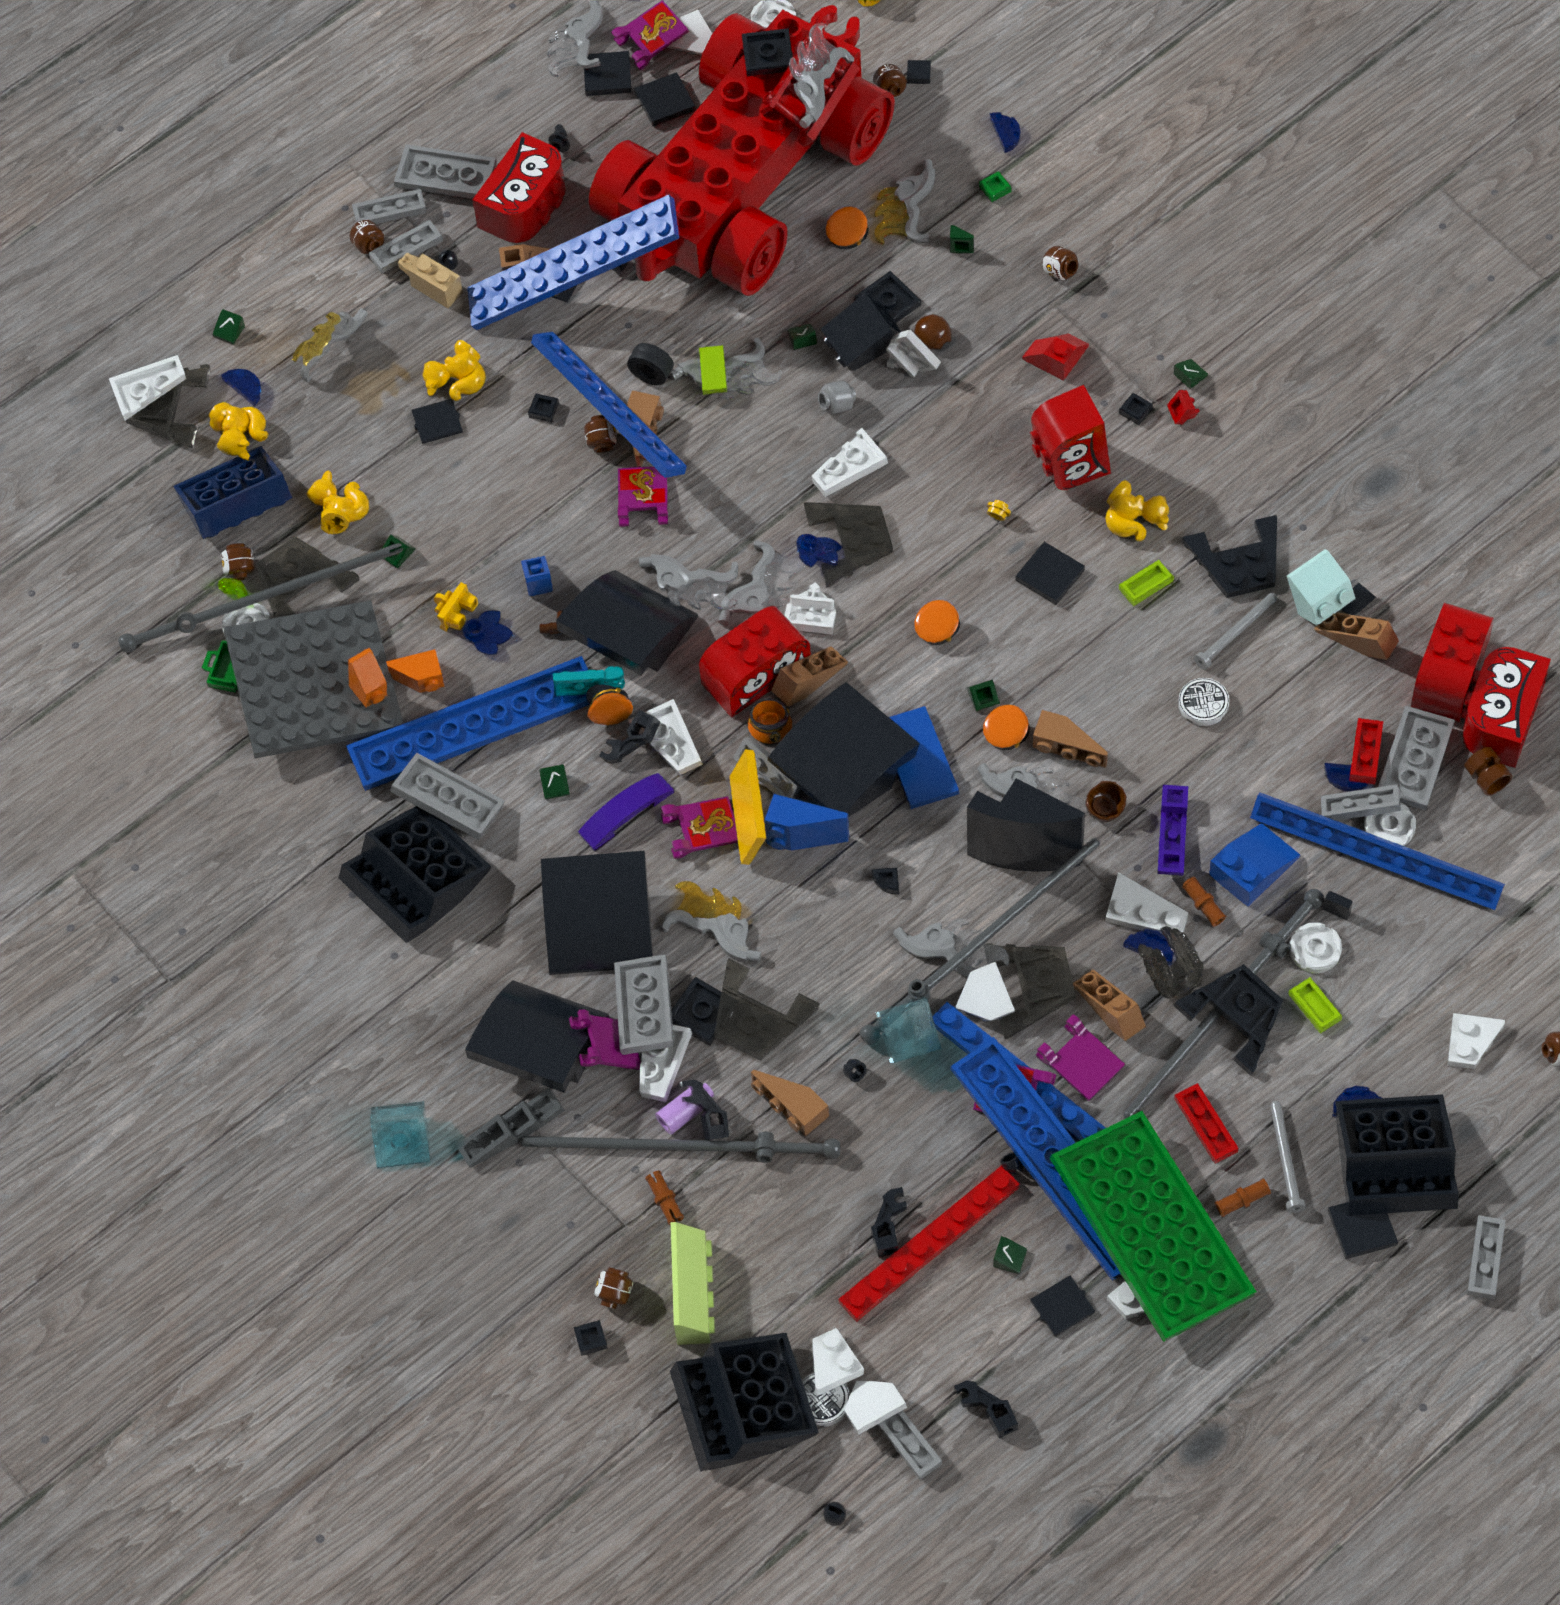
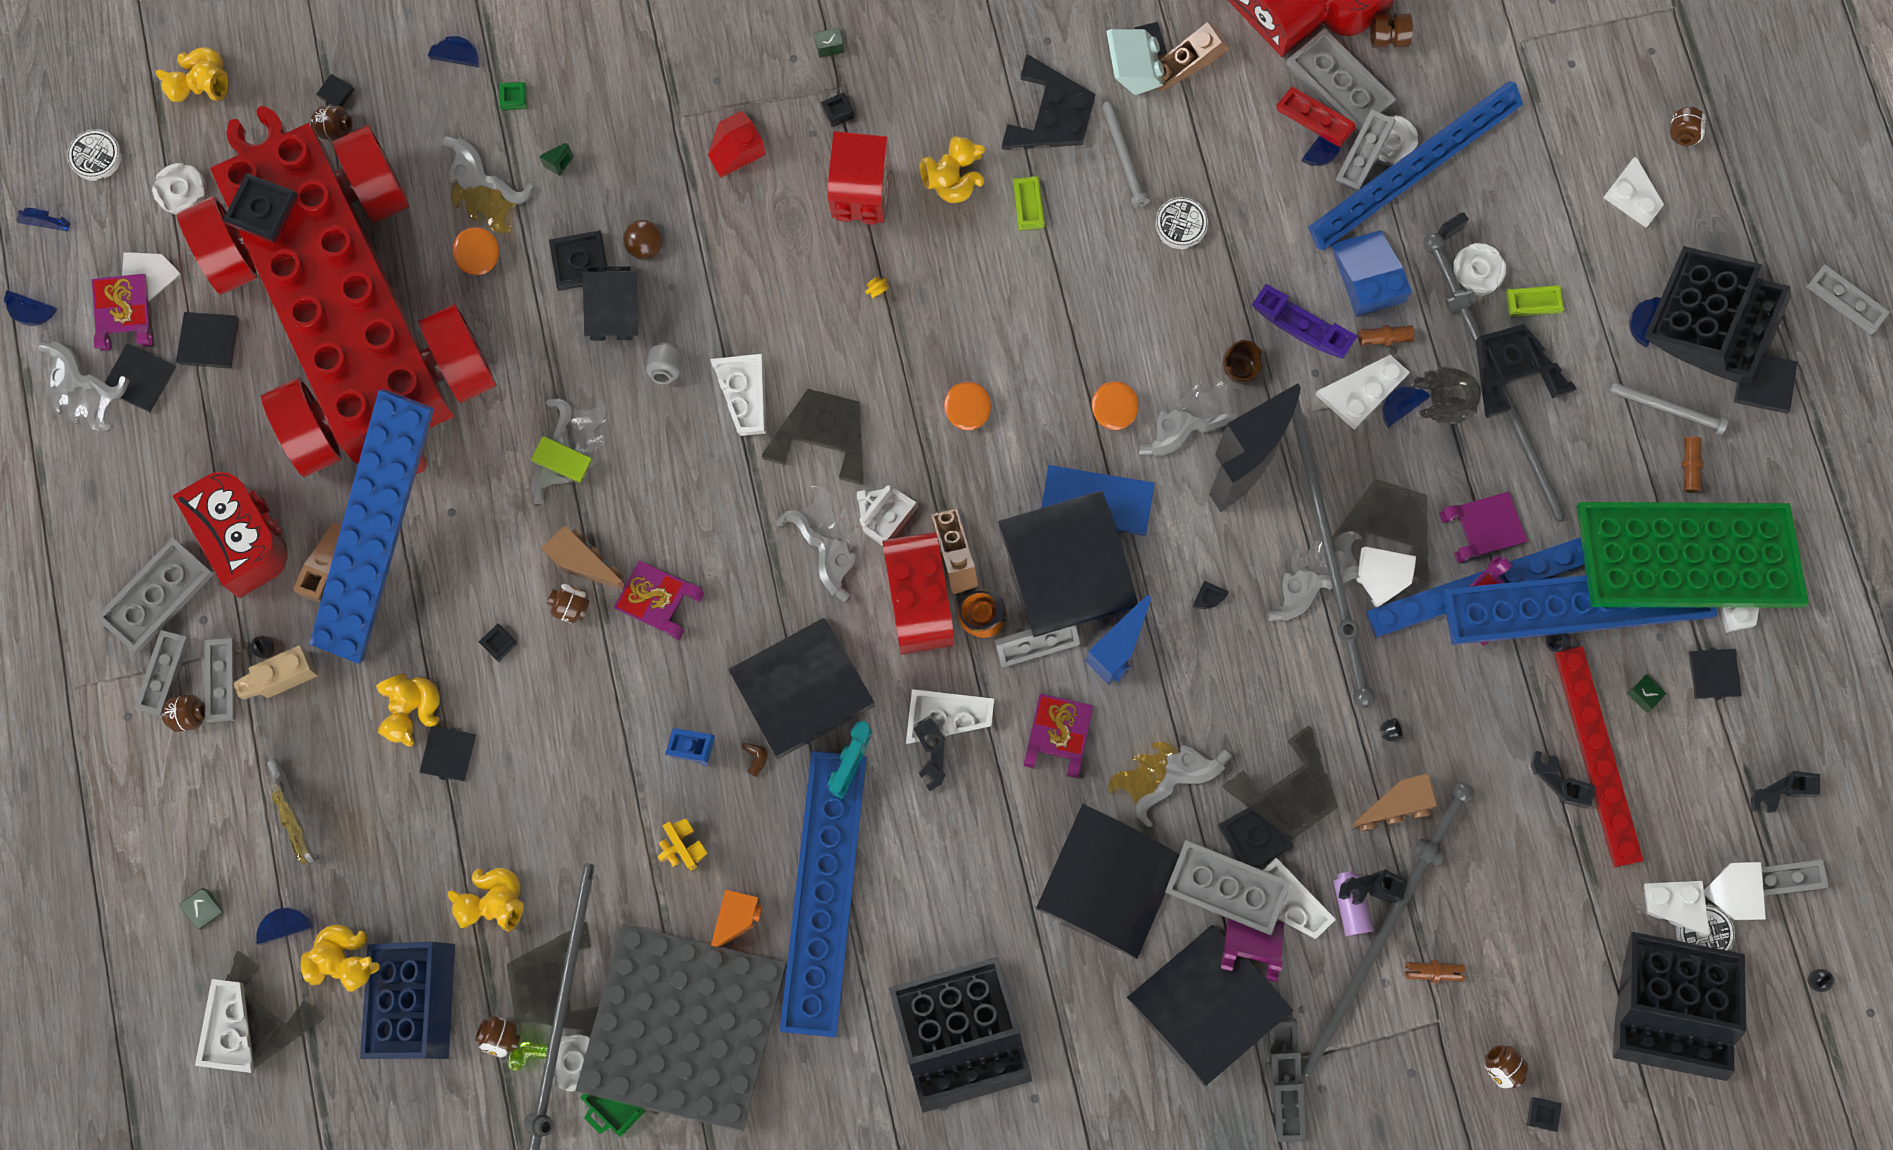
camera: 65 degrees left, 15 degrees up
(366, 678) = (729, 975): orange slope -> none
(398, 559) = (573, 866): dark green slope -> none
(447, 796) = (898, 960): light grey plate -> none
(490, 634) = (729, 824): clear blue plate -> none
(554, 781) = (934, 848): dark green slope -> none
(559, 139) = (191, 465): black plate -> none
(608, 404) = (546, 578): blue plate -> none
(608, 704) = (883, 753): orange piece -> none
(623, 807) = (1002, 796): dark purple slope -> none
(650, 364) = (520, 515): black tyre -> none
(690, 1285) = (1543, 995): yellowish green slope -> none
(692, 585) = (792, 607): piece -> none
(747, 807) = (1075, 682): yellow tile -> none
(802, 336) = (570, 357): dark green slope -> none
(814, 66) = (319, 172): piece -> none
(817, 549) = (824, 470): clear blue plate -> none
(833, 94) = (346, 174): red fence -> none
(908, 1030) = (1386, 662): clear light blue slope -> none
(910, 354) = (660, 270): white slope -> none
(983, 695) = (1062, 407): dark green slope -> none
(1050, 573) = (969, 279): black tile -> none
(1060, 263) = (641, 85): reddish brown head -> none
(1063, 737) = (1154, 360): medium nougat slope -> none
(1111, 1005) = (1446, 470): medium nougat slope -> none
(1182, 407) = (864, 69): red tile -> none
(1206, 1123) = (1605, 455): red plate -> none

